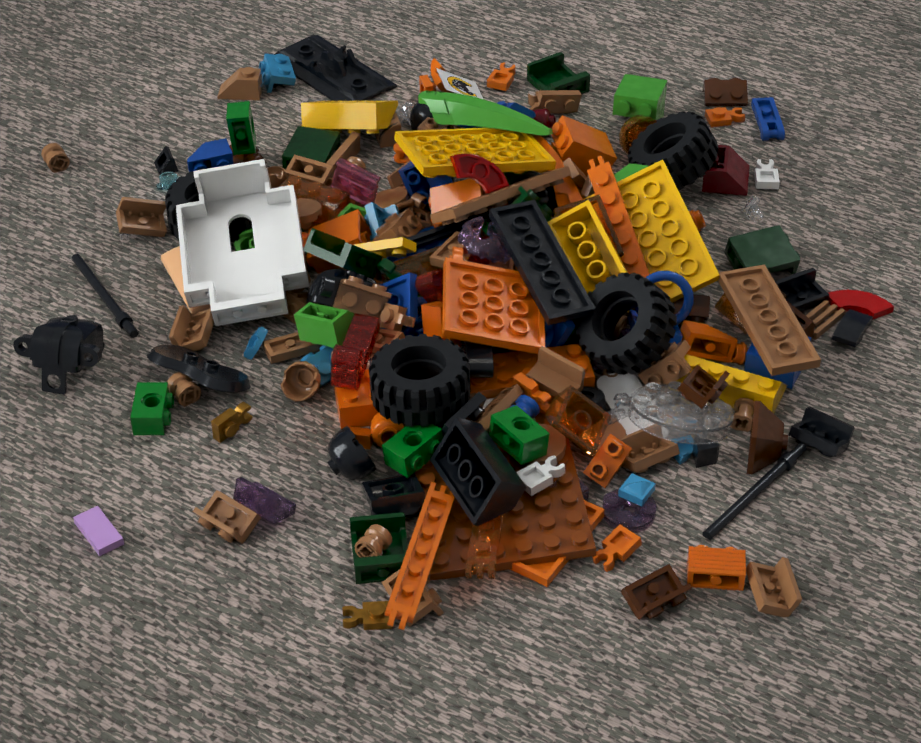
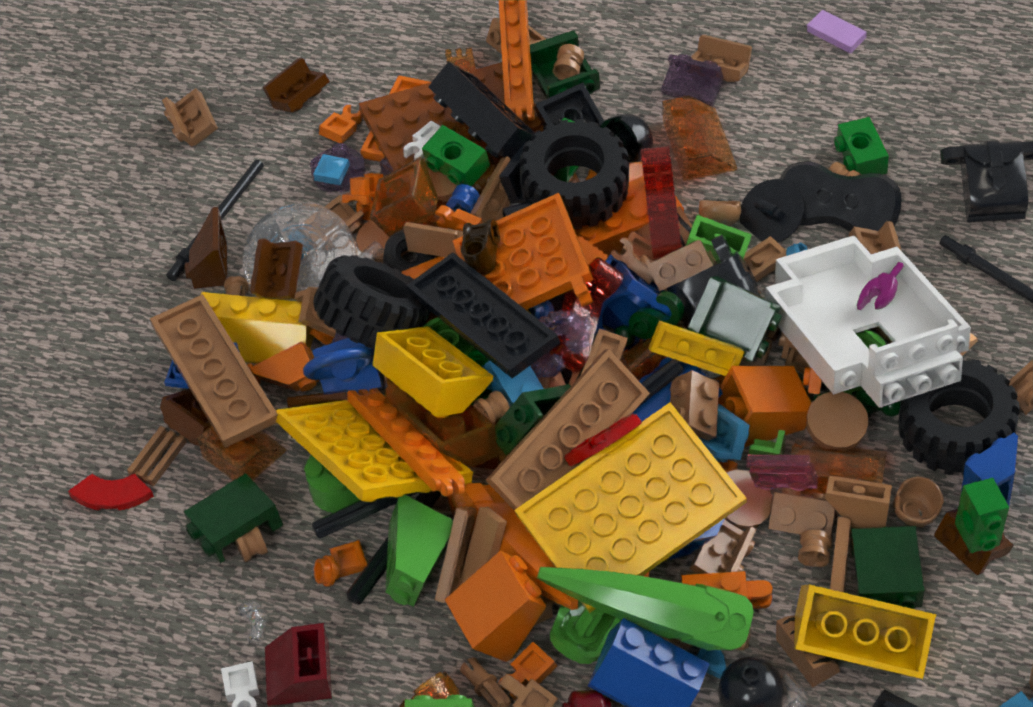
camera: 170 degrees right, 10 degrees up
(217, 253) = (882, 286): none -> magenta hand
(228, 422) = (772, 152): pearl gold plate -> none
(256, 375) = (772, 210): none -> black shield
(287, 451) = (696, 138): none -> clear orange slope
(370, 616) = (547, 20): pearl gold plate -> none
(526, 311) = (481, 245): none -> dark brown piece
(681, 142) = (347, 658): black tyre -> none
(716, 567) = (245, 124): orange brick -> none
(802, 290) = (183, 476): black bracket -> none
(822, 432) = (151, 286): black bracket -> none
(852, 328) = (117, 446): black slope -> none

